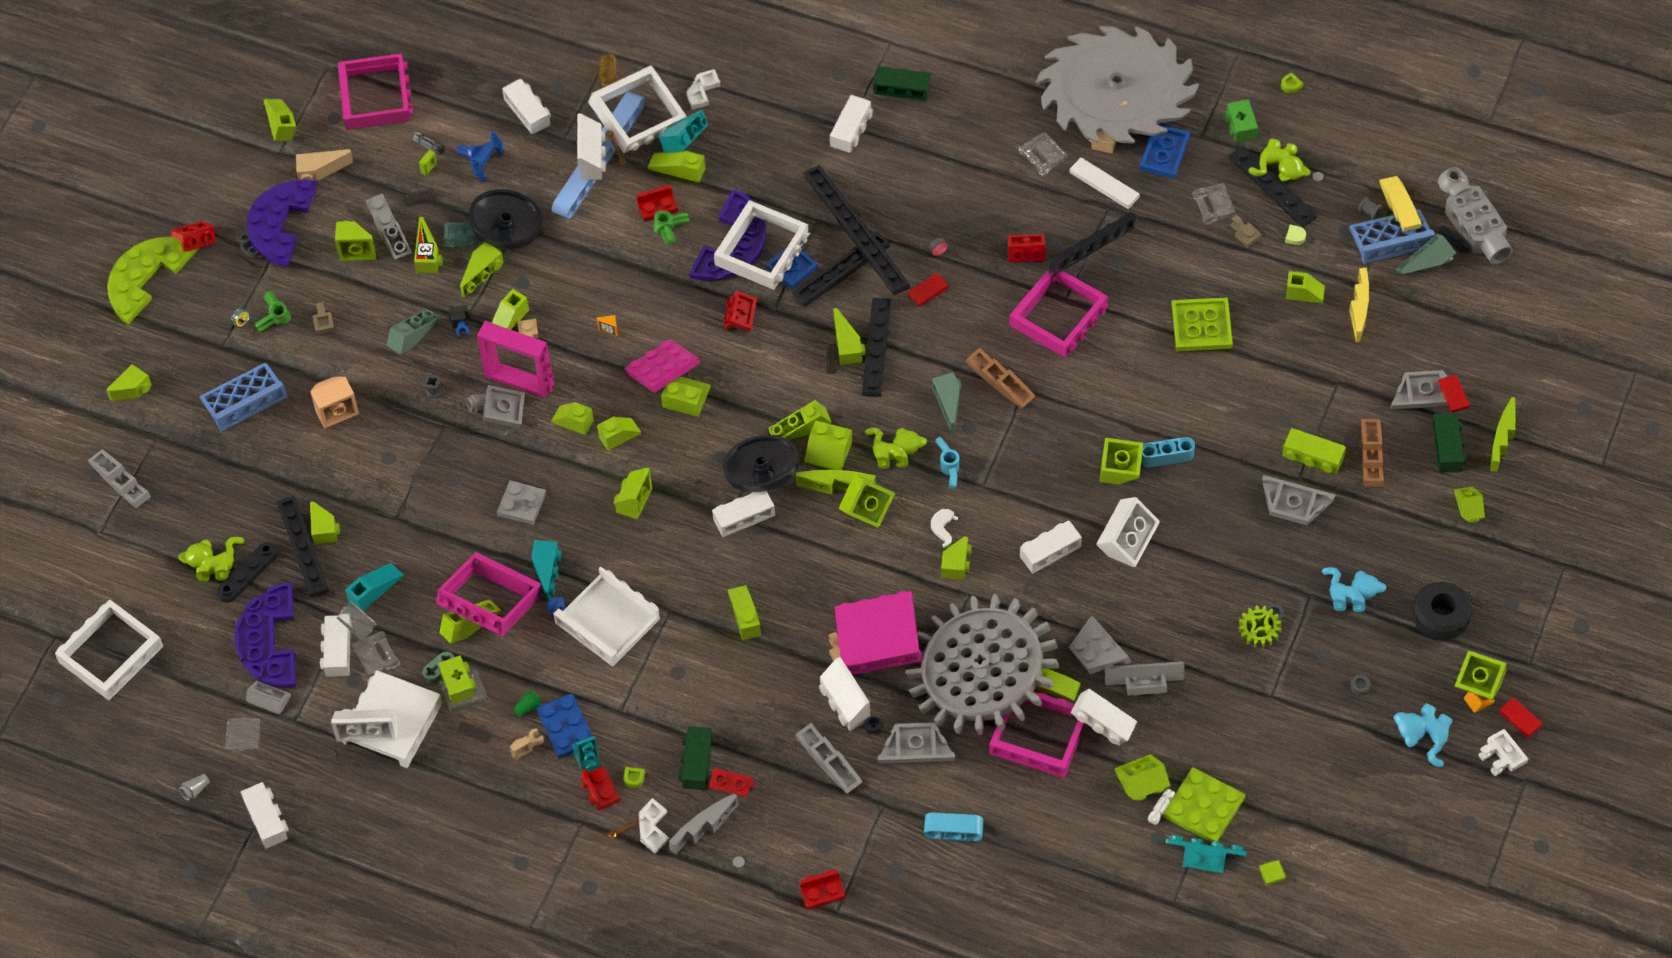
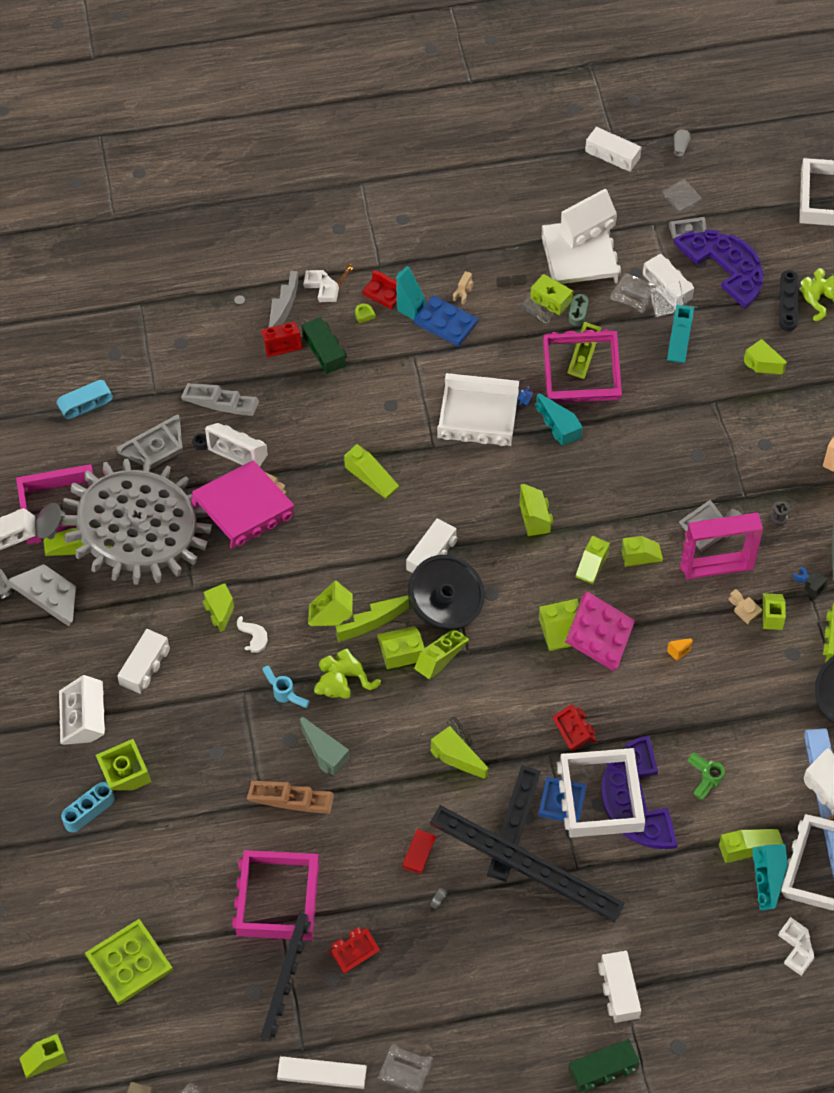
camera: 145 degrees right, 0 degrees up
(302, 546) = (754, 332): black plate -> none
(521, 502) = (624, 464): light grey hinge -> none
(528, 702) = (487, 318): green cone -> none
(656, 200) = (735, 793): red bracket -> none
(822, 889) = (159, 308): red bracket -> none
(876, 347) = (425, 764): black plate -> none
(1062, 692) = (49, 520): none -> dark grey dish

